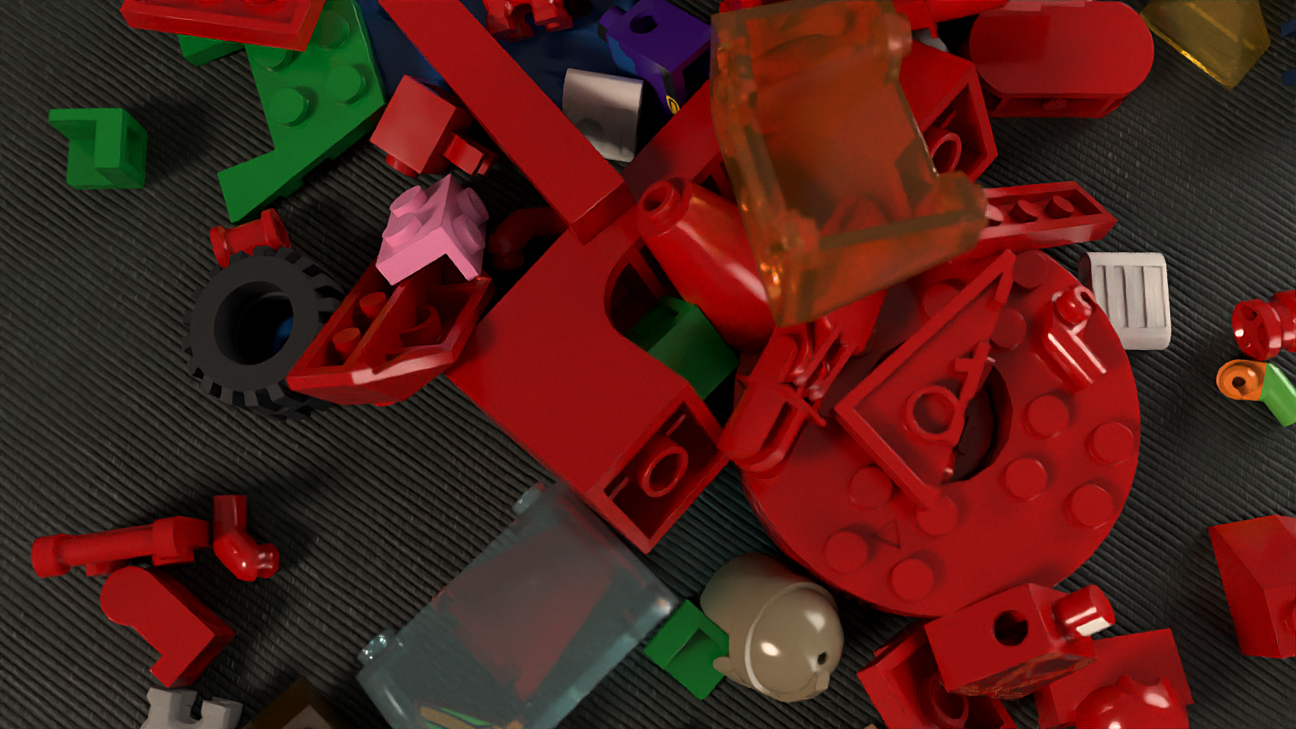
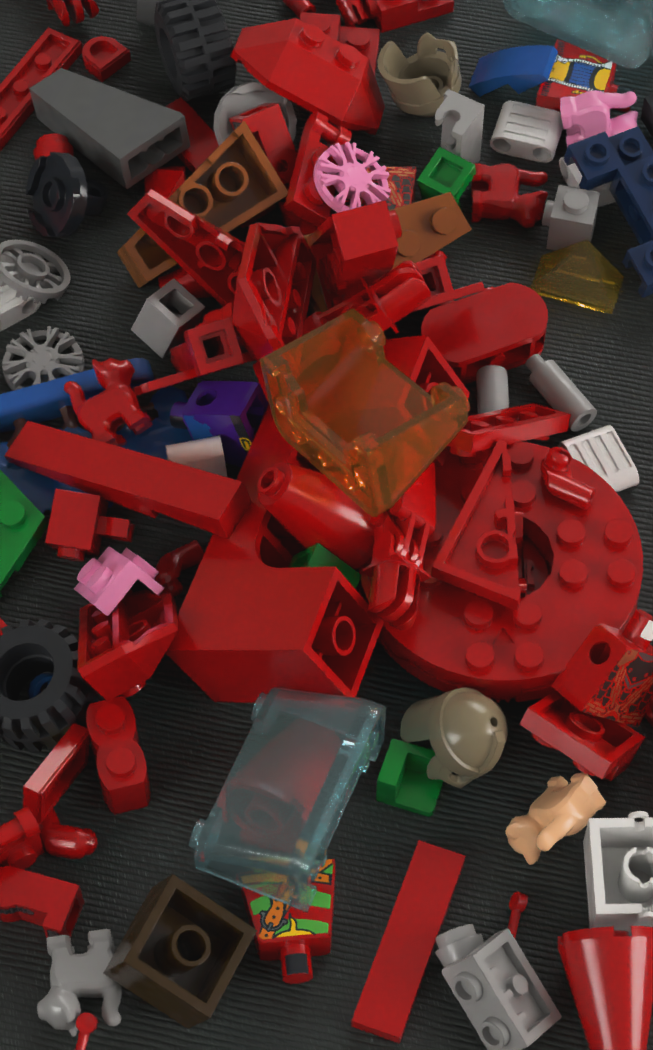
camera: 20 degrees left, 20 degrees down
(252, 466) = (57, 772): none -> red tile
(340, 483) = (118, 755): none -> red brick
(1026, 148) = (492, 388): none -> light grey cylinder
(1117, 178) = (560, 392): none -> light grey cylinder

